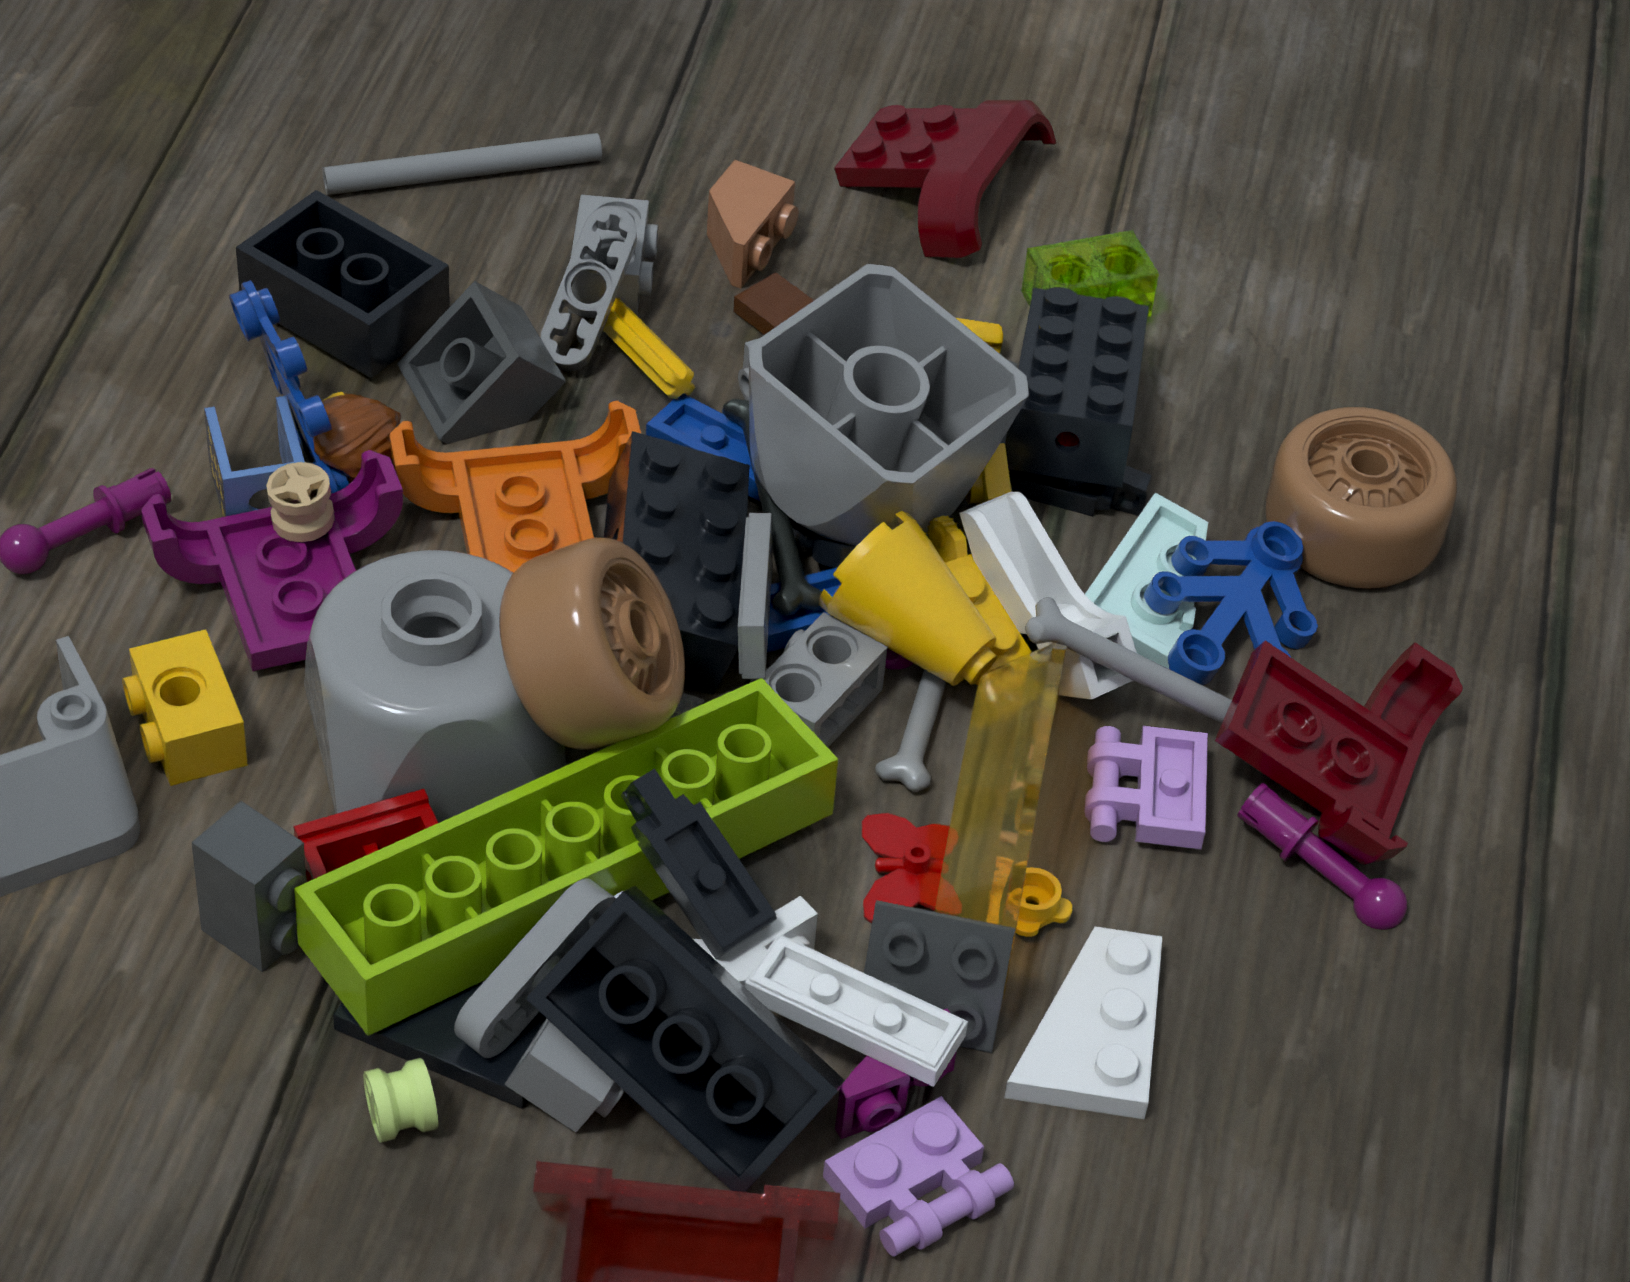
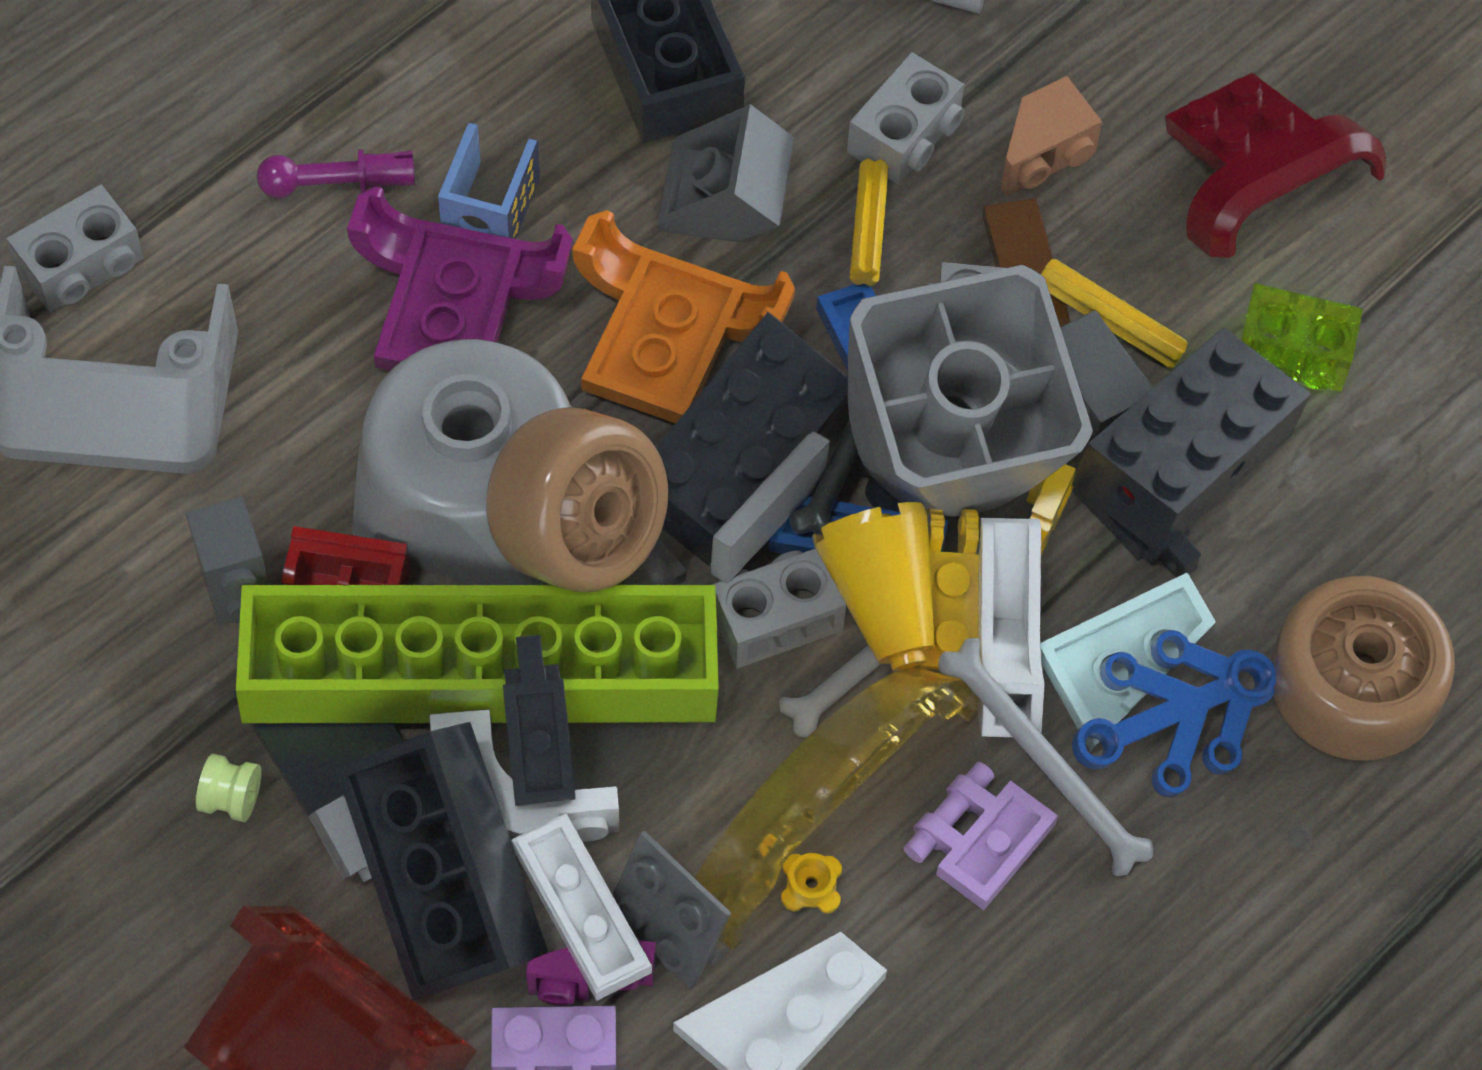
camera: 35 degrees right, 15 degrees up
(186, 708) = (304, 406): yellow brick -> none
(256, 317) = (535, 121): blue plant -> none
(300, 502) = (480, 230): tan wheel -> none
(356, 427) = (570, 193): dark orange hair -> none
(499, 1006) = (320, 756): light grey beam -> none
(589, 242) = (873, 111): light grey beam -> none
(909, 856) = (749, 768): red piece -> none
(1333, 750) = (1155, 886): dark red piece -> none
(1376, 901) = (1092, 1035): magenta pin -> none

